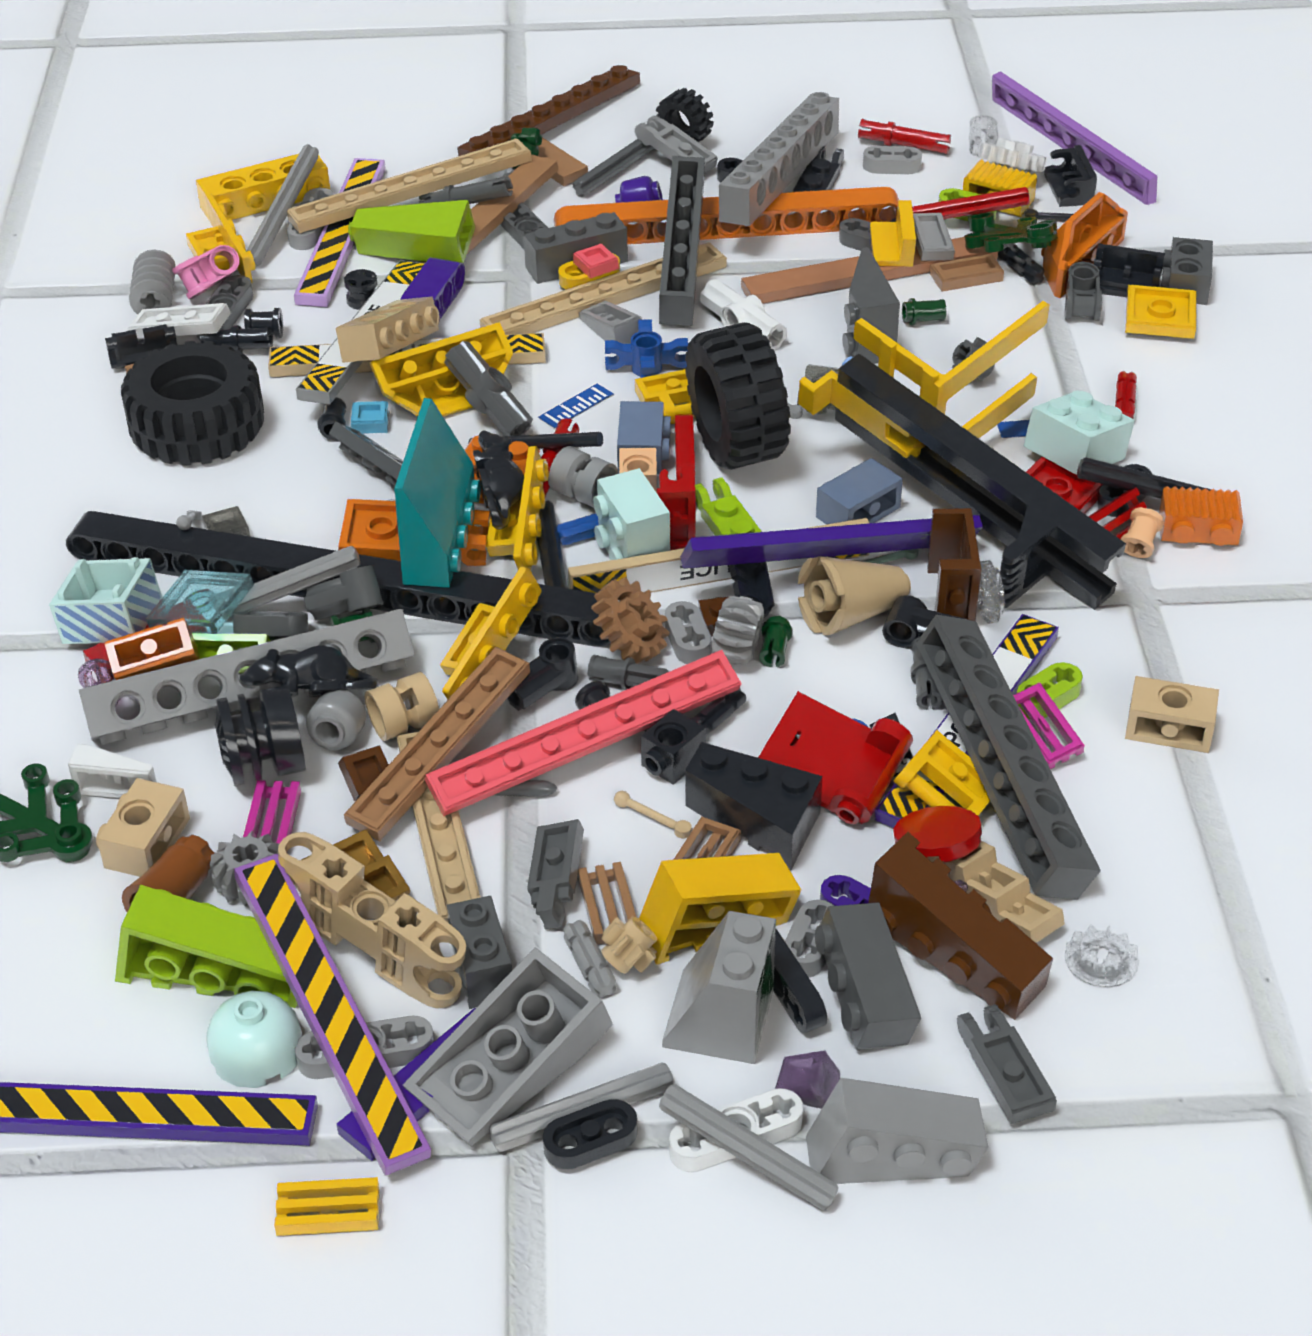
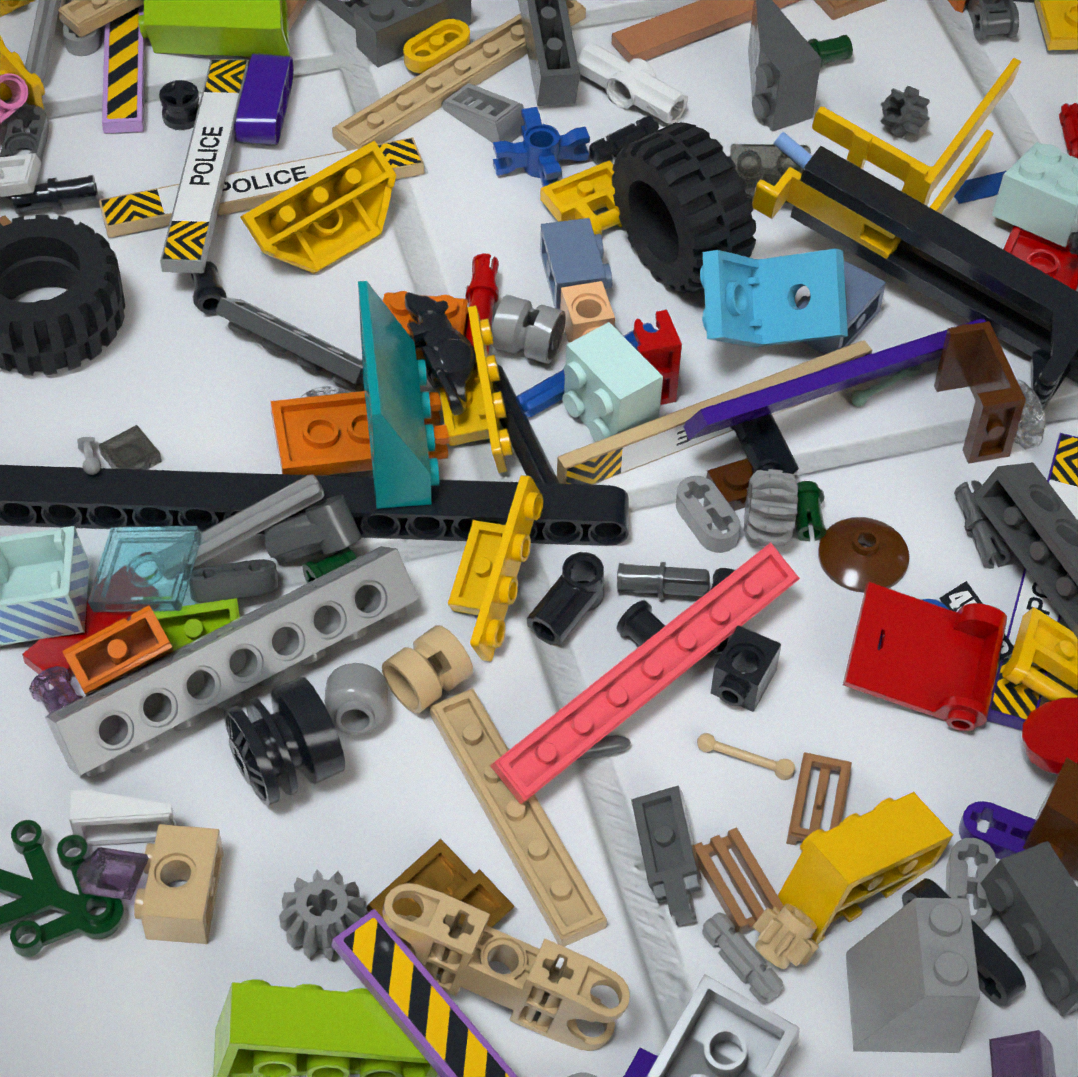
camera: 15 degrees left, 10 degrees up
(87, 806) = (111, 873): none -> clear purple slope
(178, 870) = (241, 946): dark orange plant -> none
(265, 319) = (80, 165): black bush -> none
(275, 794) = (317, 803): dark pink tile -> none
(313, 669) = (320, 643): black animal -> none
(362, 769) = (415, 763): reddish brown plate -> none
(370, 417) = (248, 278): medium azure tile -> none
(387, 329) = (243, 165): tan brick -> none
(437, 743) = (486, 714): medium nougat tile -> none
(486, 952) = (620, 947): dark grey brick -> none
(488, 390) = (384, 230): dark grey piece -> none
(562, 440) = (477, 288): black bar -> none
(576, 404) = (477, 227): blue sticker -> none
(595, 260) = (444, 34): coral tile -> none
(630, 620) = (649, 515): medium nougat gear -> none
(684, 443) = (628, 277): red beam -> none
(720, 710) = (773, 616): black axle -> none
(726, 514) = (706, 360): lime hinge -> none
(761, 798) = (860, 721): black wedge -> none
(789, 472) = (755, 299): none -> medium azure bracket
(817, 677) = (854, 565): none -> reddish brown dish
(847, 592) = (870, 440): tan cone -> none
(908, 621) = (948, 464): black piece -> none

